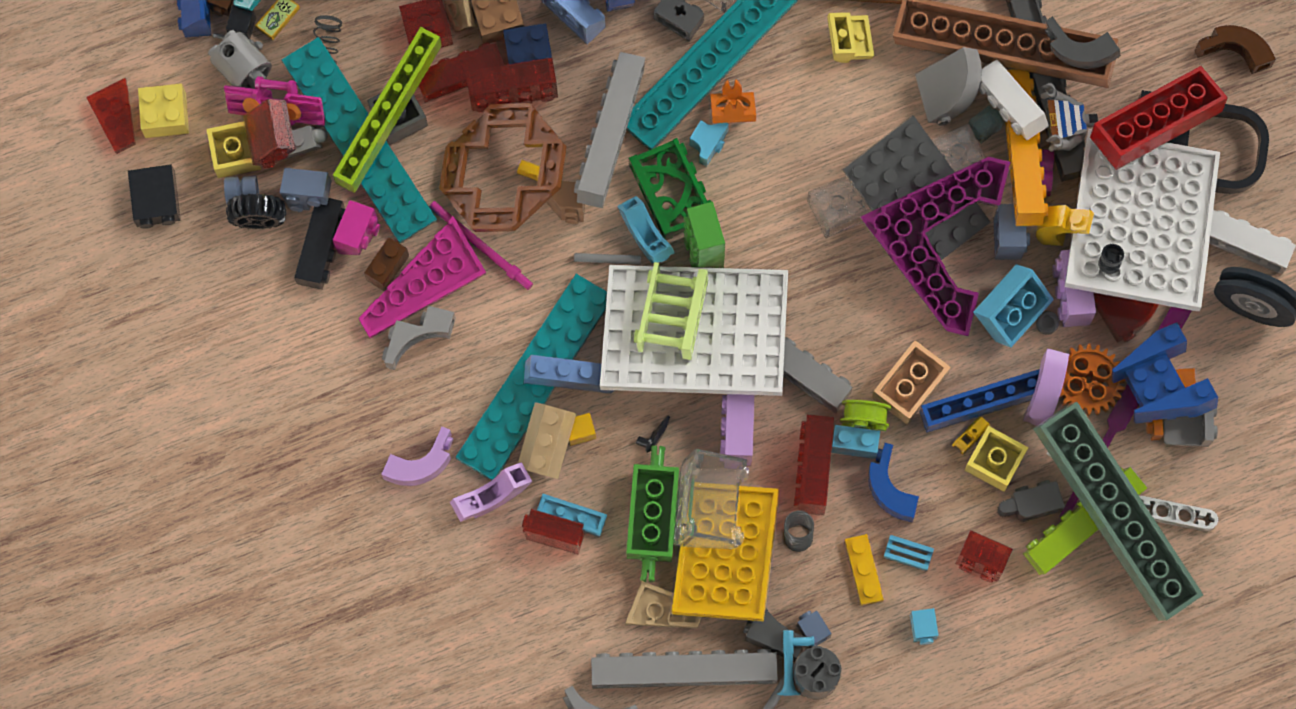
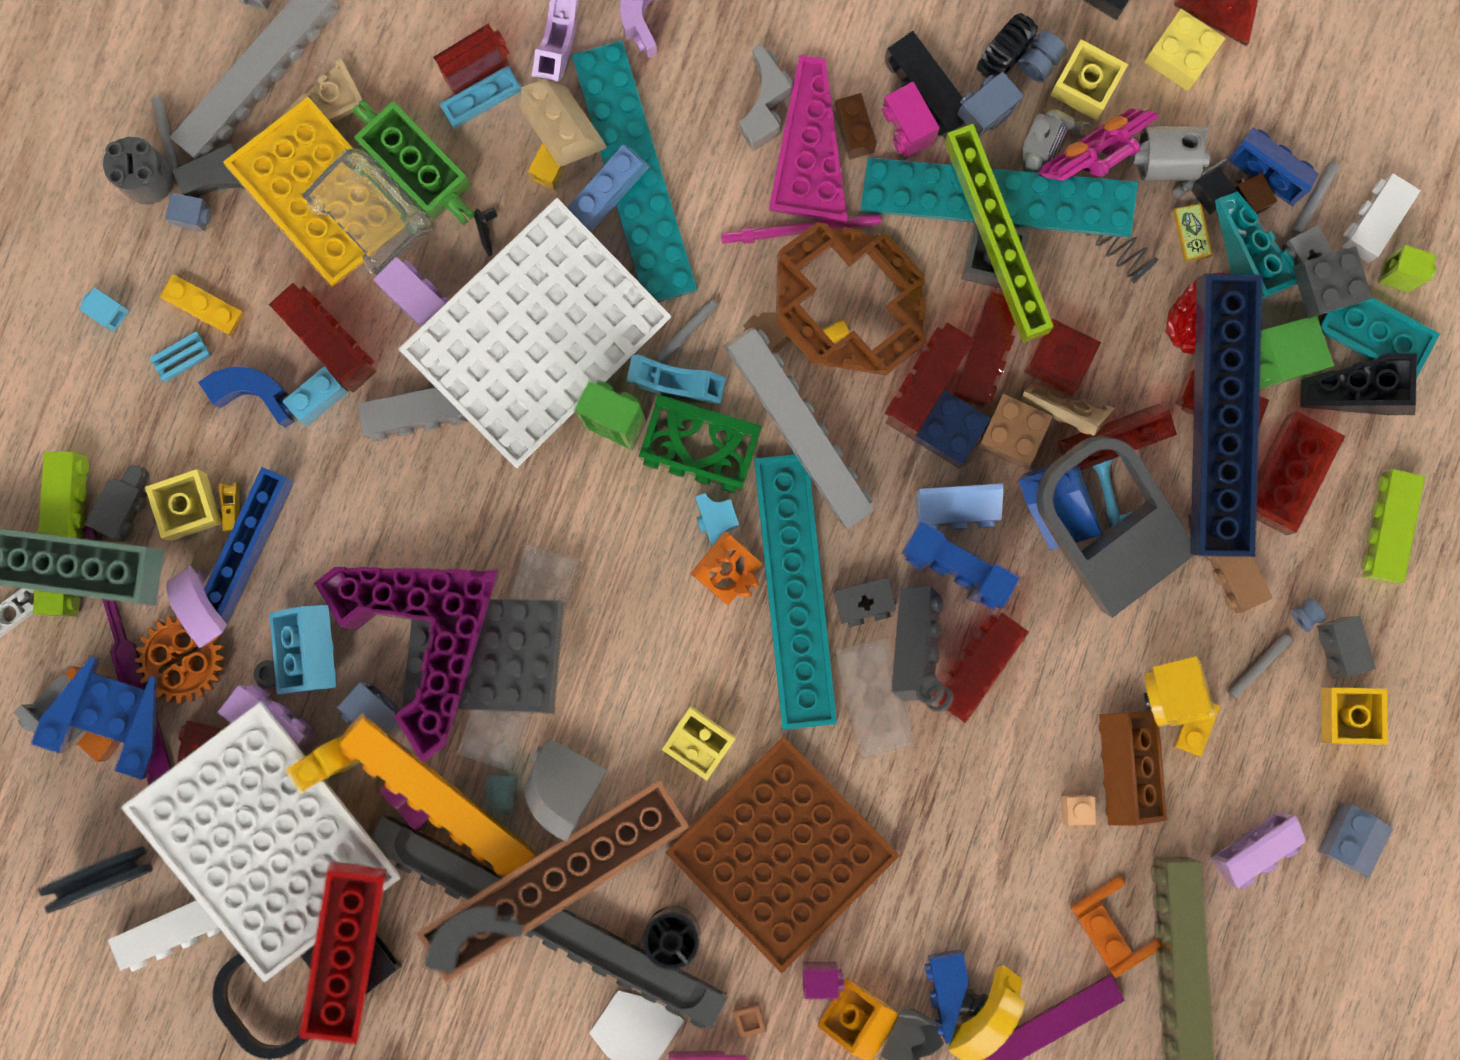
camera: 135 degrees right, 10 degrees up
(269, 133) = (1069, 109): clear red brick -> none
(689, 324) = (540, 325): yellowish green fence -> none
(789, 642) = (154, 137): medium azure piece -> none
(795, 543) = (275, 263): dark grey piece -> none
(865, 414) = (326, 423): lime wheel -> none
(911, 382) = (320, 493): light nougat brick -> none
(983, 557) = (107, 411): clear red brick -> none
(1012, 101) = (485, 826): white brick -> none
(1065, 119) = (424, 862): torso -> none
(1111, 258) = (237, 770): black wheel -> none

